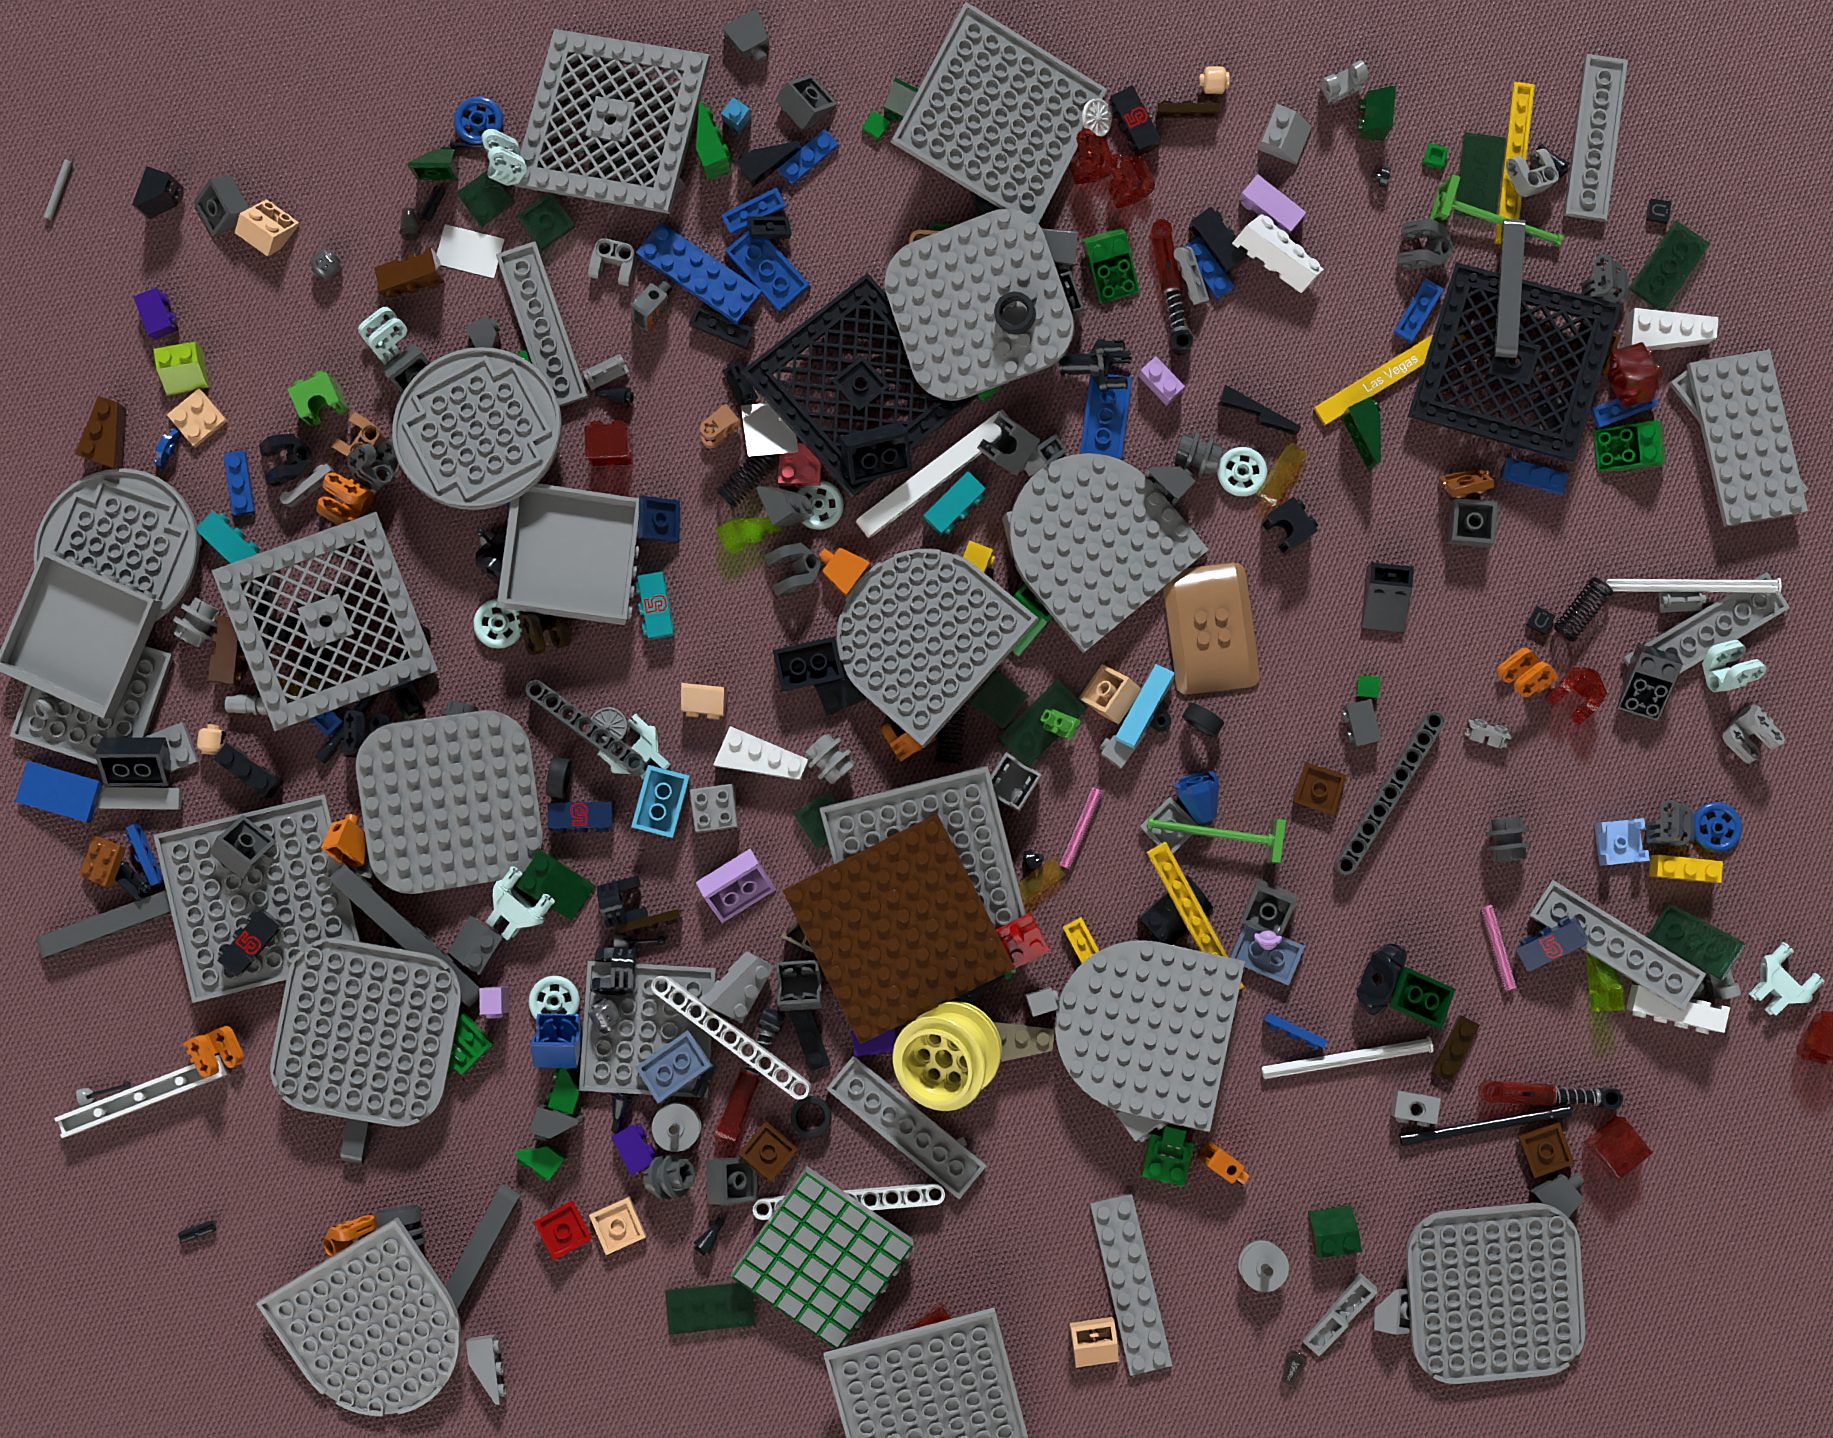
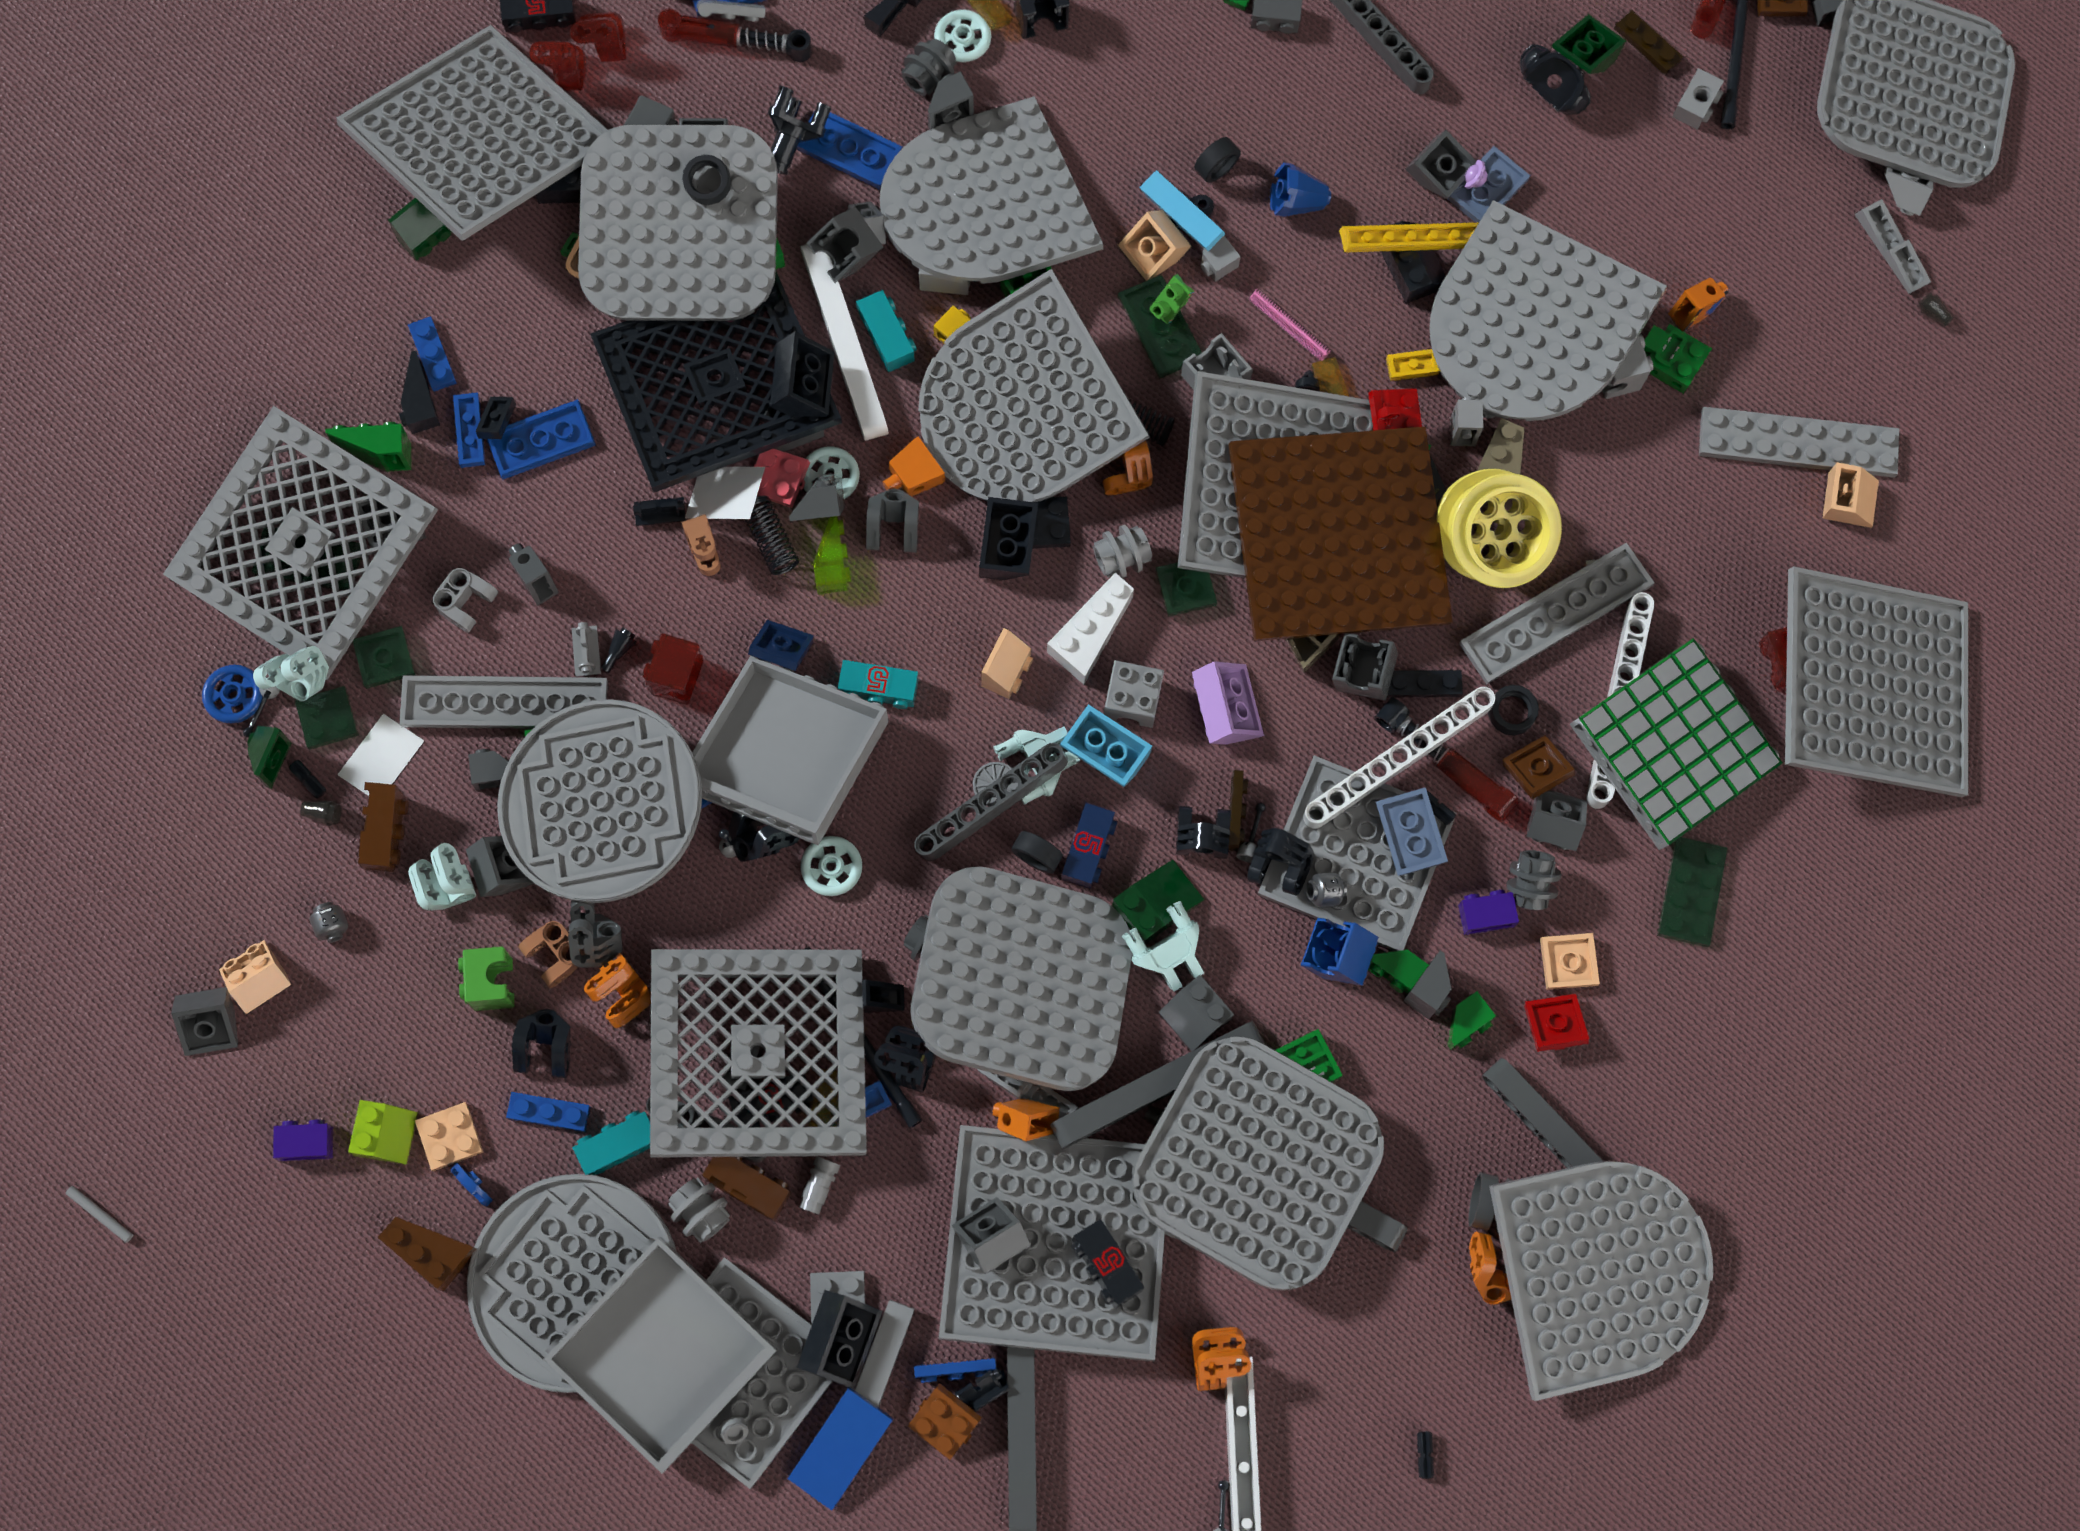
camera: 75 degrees left, 10 degrees down
(157, 193) = (158, 1084): black slope -> none
(211, 739) = (845, 1242): light nougat head -> none
(248, 770) = (898, 1209): black brick -> none
(306, 486) = (584, 1030): light grey plate -> none
(485, 1363) = (1680, 1161): light grey slope -> none
(494, 1001) = (1270, 1009): lavender brick -> none
(532, 631) = (859, 813): dark brown piece -> none
(564, 987) = (1269, 953): light aqua plate -> none
(620, 1105) = (1433, 912): black cone -> none
(676, 1126) = (1479, 856): light grey wheel -> none
(698, 273) = (515, 511): blue plate -> none
(706, 1241) = (1618, 870): black cone -> none
(721, 327) = (587, 507): black plate -> none
(736, 115) = (351, 409): dark azure brick -> none
(739, 987) = (1345, 733): light grey wedge -> none
(748, 36) = (267, 367): dark grey torso -> none
(805, 101) = (368, 333): dark grey slope -> none
(876, 125) = (426, 271): green tile -> none
(879, 1044) = (1459, 605): dark purple piece -> none
(999, 700) = (1125, 356): clear green plate -> none
(1097, 116) = (515, 43): white wheel -> none
(1110, 265) = (686, 85): green slope -> none
(1161, 381) = (833, 78): lavender brick -> none
(1169, 812) = (1317, 235): light grey plate -> none
(1211, 629) = (1121, 124): medium nougat wedge -> none
(1263, 1266) = (1820, 300): light grey wheel -> none
(1273, 841) = (1372, 134): bright green tile -> none
(1294, 1031) = (1580, 187): blue plate -> none
(1319, 788) = (1331, 76): reddish brown plate -> none
(1334, 1232) = (1805, 220): dark green slope -> none
(1348, 1058) = (1626, 144): white axle -> none

